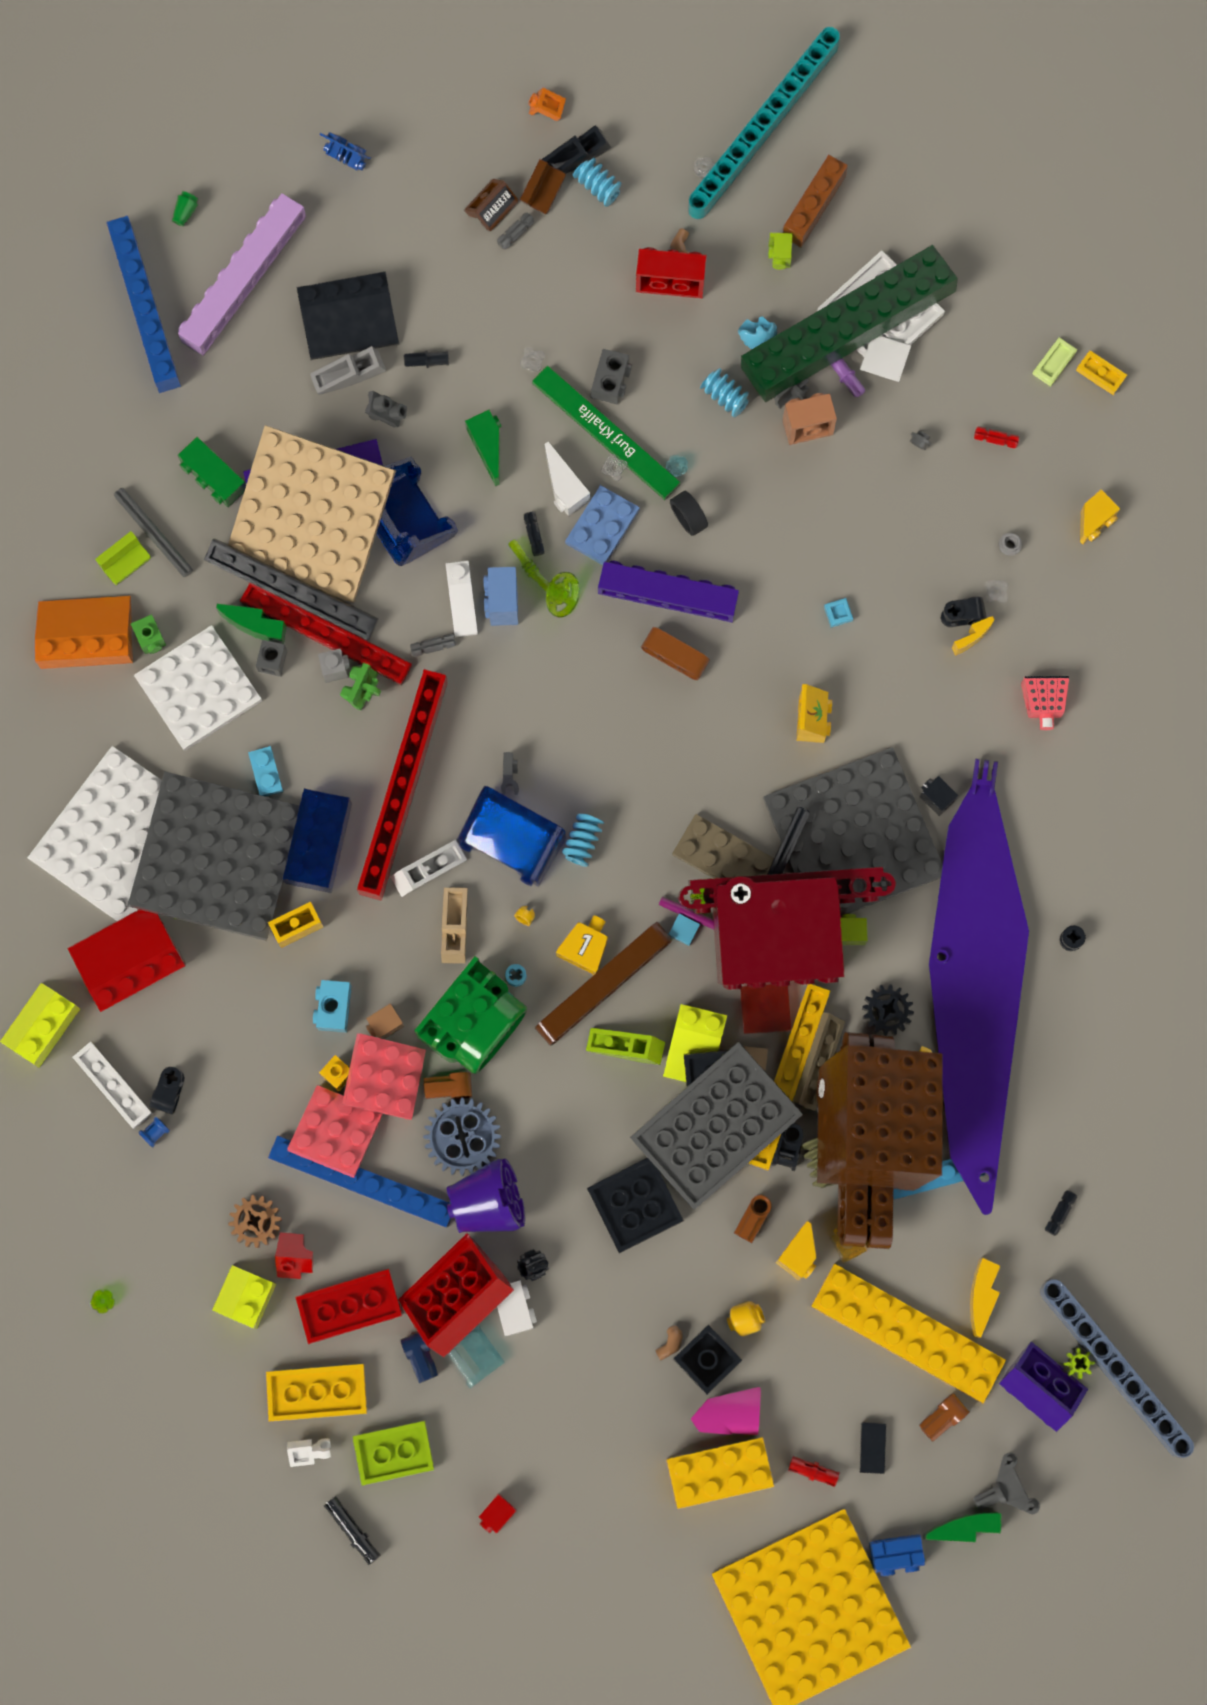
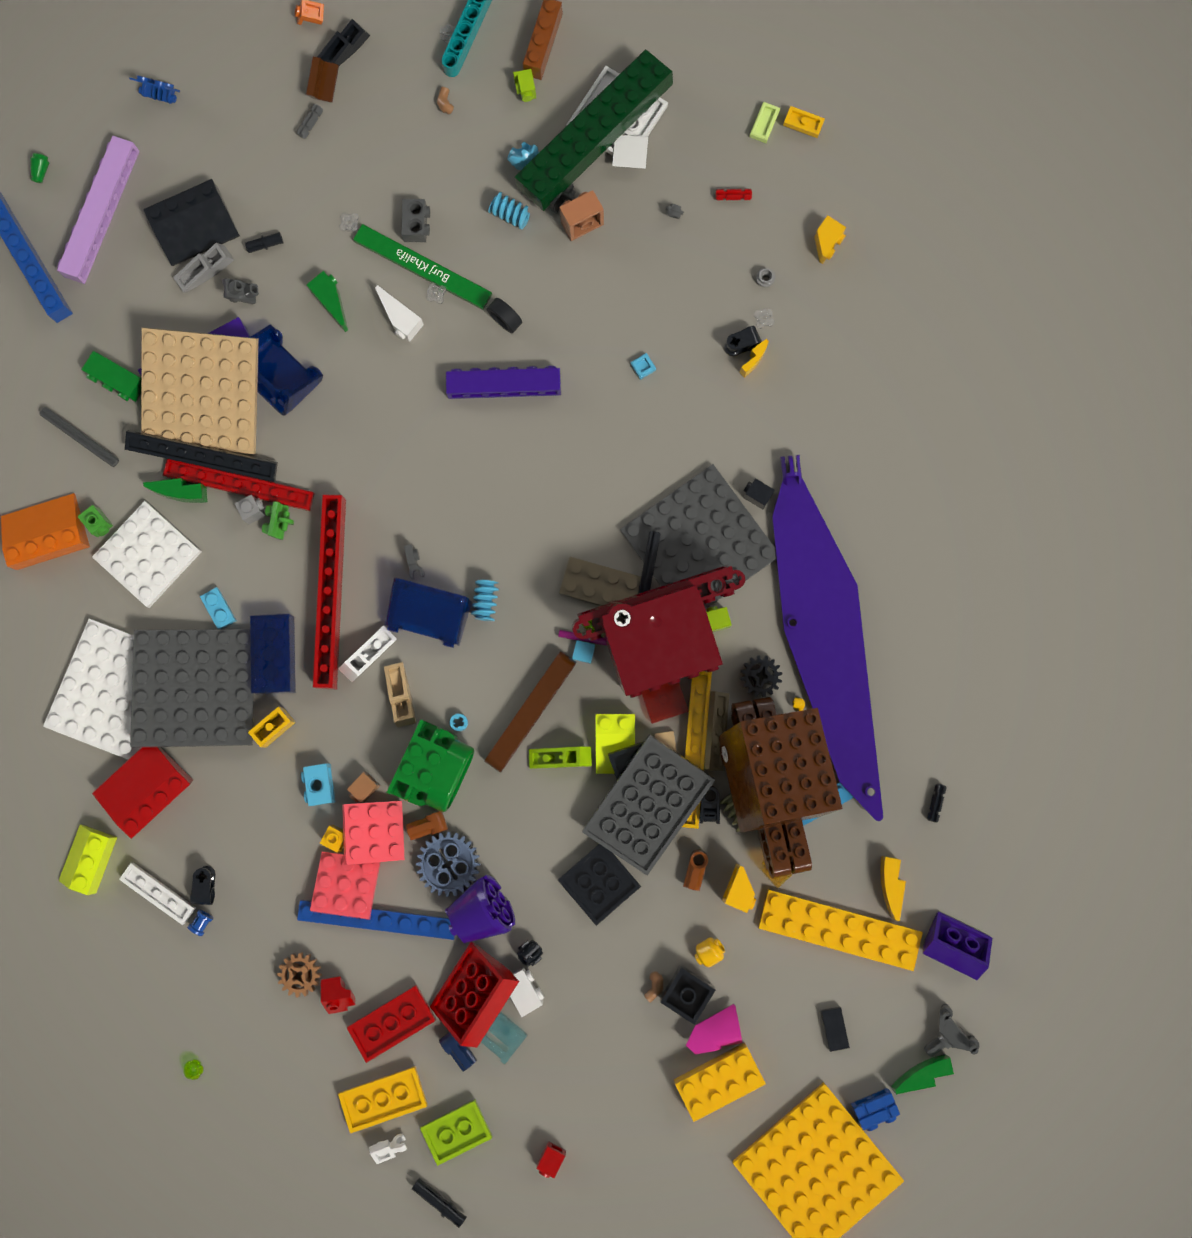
camera: 10 degrees left, 5 degrees up
(123, 558) = (59, 464): lime panel -> none
(244, 1297) = (306, 1038): neon yellow slope -> none
(275, 666) = (205, 520): dark grey brick -> none
(433, 645) = (326, 472): dark grey axle -> none
(461, 598) = (340, 429): white slope -> none
(492, 203) = (286, 104): panel -> none
(502, 595) = (371, 419): medium blue brick -> none
(524, 916) = (454, 673): yellow hinge -> none
(534, 534) = (385, 362): black axle -> none
(555, 593) = (414, 406): clear neon green dish -> none
(585, 945) = (508, 685): yellow torso -> none
(597, 181) = (365, 65): medium azure piece -> none
(602, 525) = (438, 342): medium blue plate -> none
(670, 273) = (441, 124): red brick -> none
(675, 653) = (521, 431): dark orange beam -> none
(677, 471) = (486, 284): clear light blue plate -> none
(812, 714) = (643, 453): yellow slope -> none
(813, 1471) = (793, 1060): red pin -> none
(848, 378) = (604, 175): medium lavender axle -> none
(948, 1413) = (888, 986): dark orange piece -> none
(1045, 698) = (824, 394): coral torso -> none
(1069, 941) = (890, 584): black wheel -> none
(1085, 1363) = (987, 920): lime gear -> none
(1127, 1373) = (1020, 921): sand blue beam -> none

